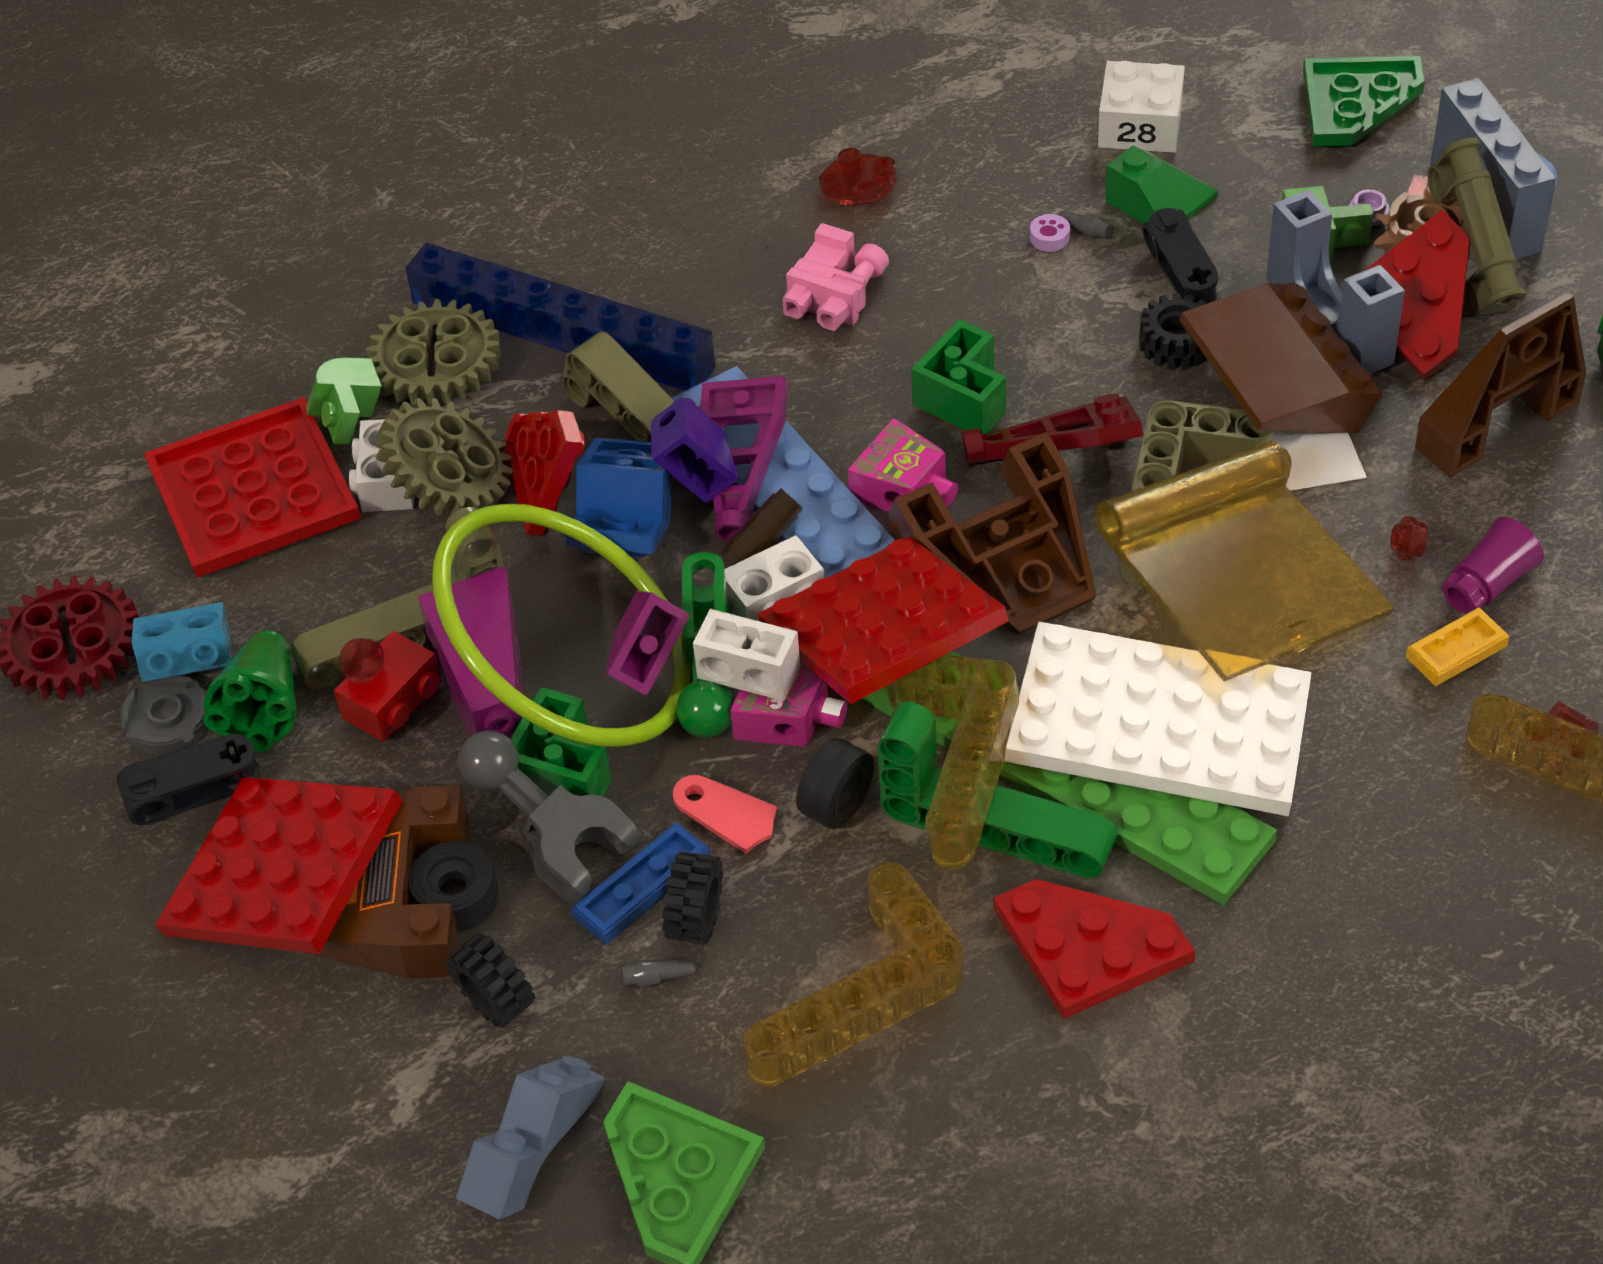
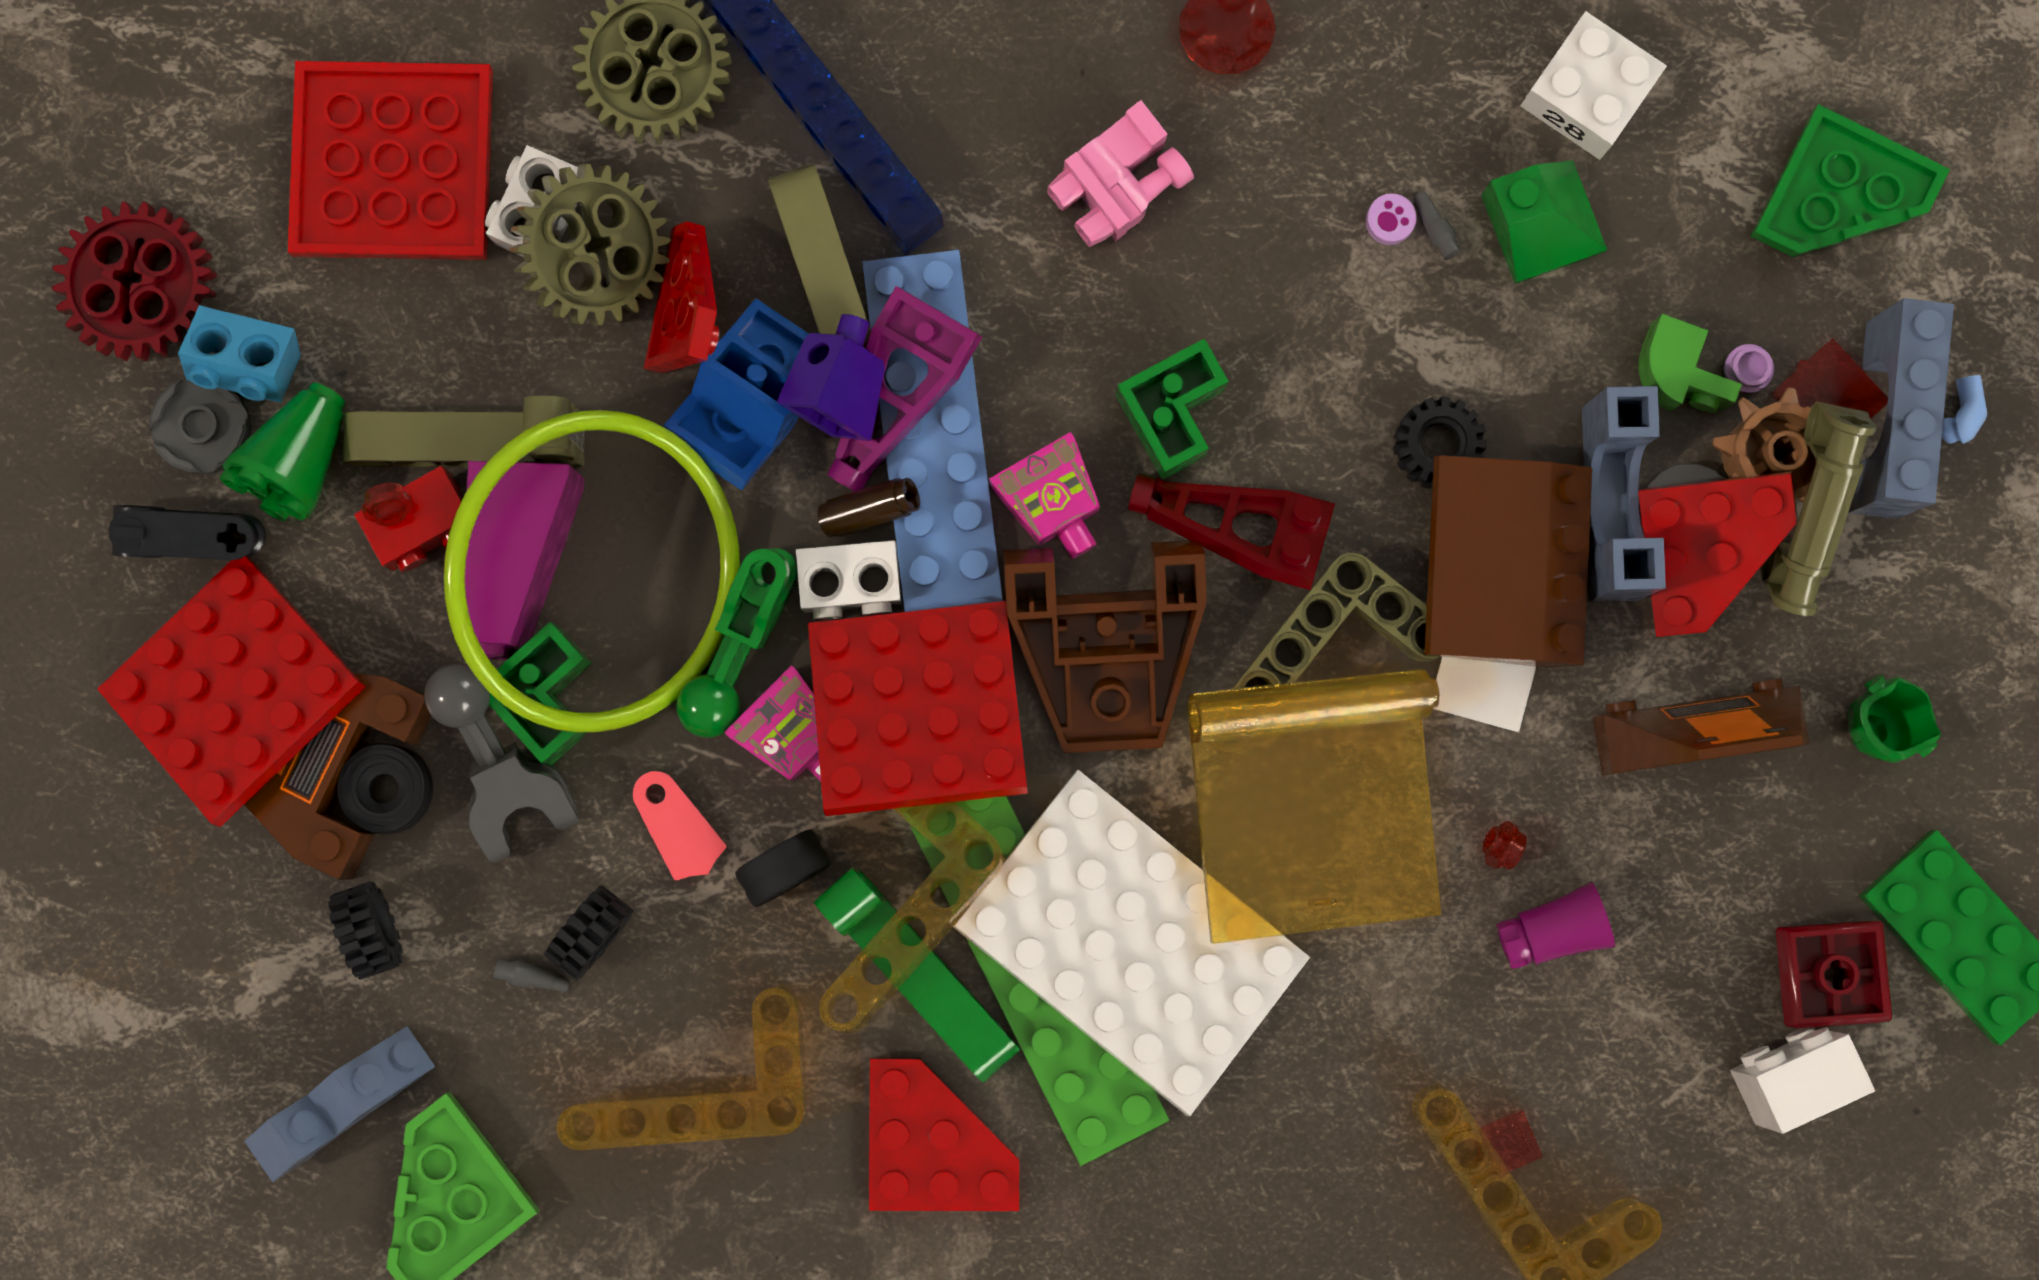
camera: 20 degrees right, 35 degrees up
(342, 394) = (526, 79): bright green brick -> none
(634, 885) = (562, 866): blue tile -> none
(644, 640) = (673, 618): magenta slope -> none
(747, 654) = (756, 699): white brick -> none
(1181, 255) = (1502, 345): black piece -> none
(1457, 646) = (1468, 999): yellow plate -> none

